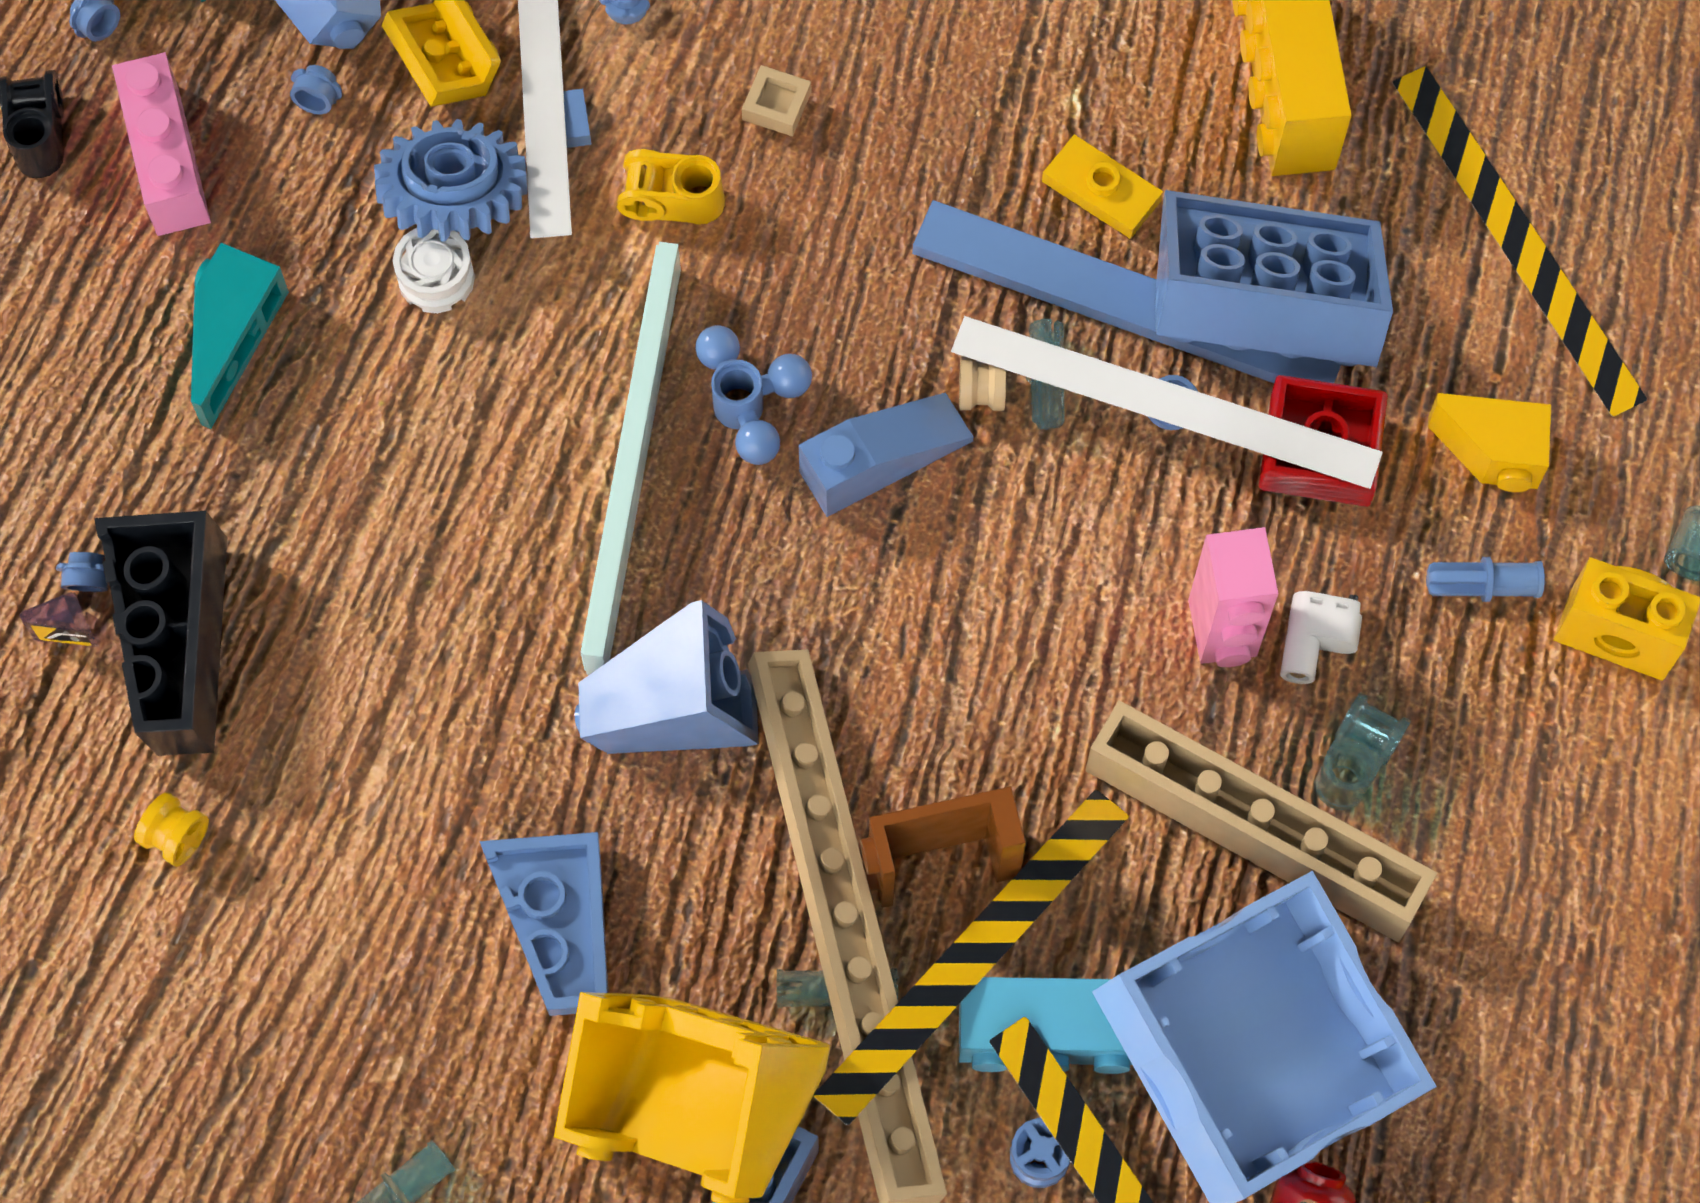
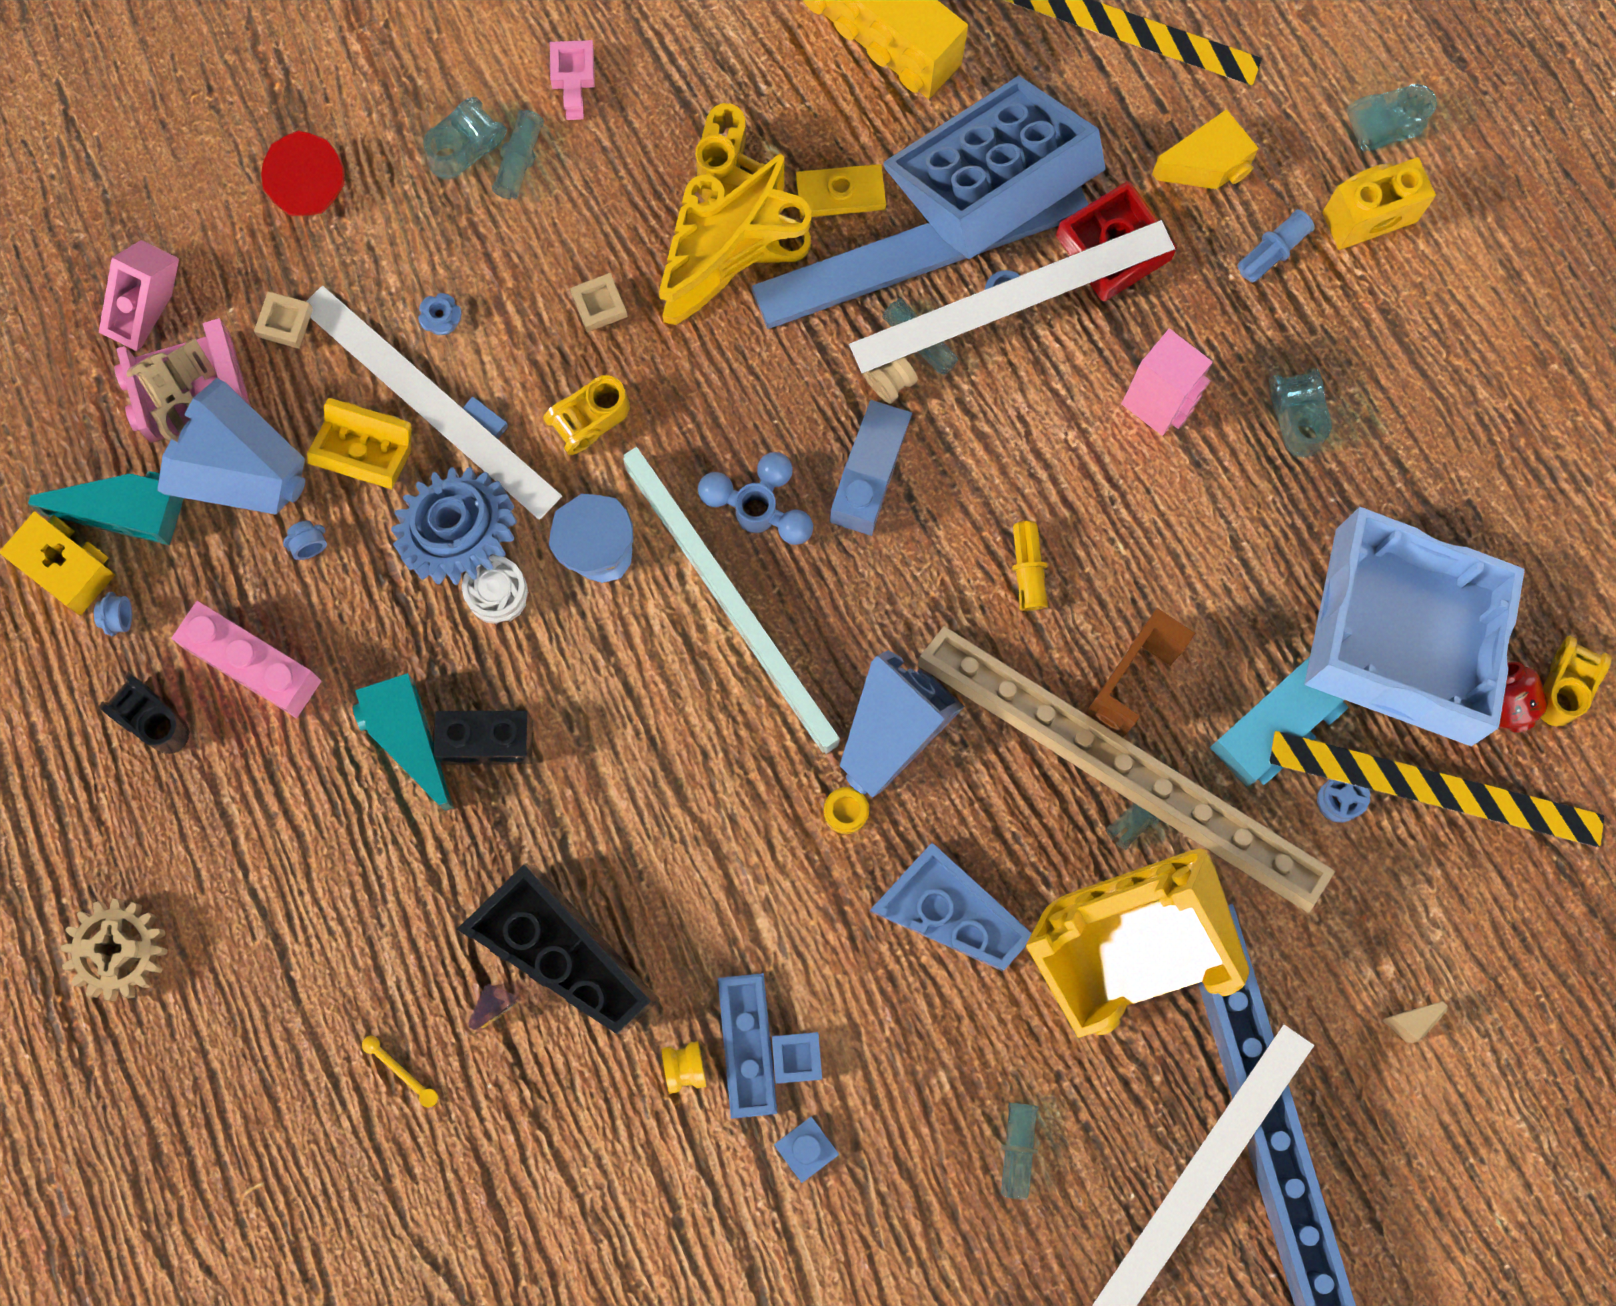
camera: 45 degrees left, 10 degrees up
(83, 572) = (473, 964): medium blue plate -> none
(206, 1009) = (806, 1149): none -> medium blue plate
(249, 867) = (747, 1046): none -> medium blue tile
(280, 916) = (796, 1058): none -> medium blue plate
(292, 383) = (483, 737): none -> black brick
(552, 739) = (846, 810): none -> yellow tile
(564, 297) = (593, 537): none -> medium blue hat
(944, 667) = (1029, 567): none -> yellow axle
(961, 128) = (734, 225): none -> yellow piece
(969, 958) = (1213, 725): sticker -> none
(1258, 820) = (1290, 501): tan brick -> none
(1318, 624) = (1222, 348): white piece -> none

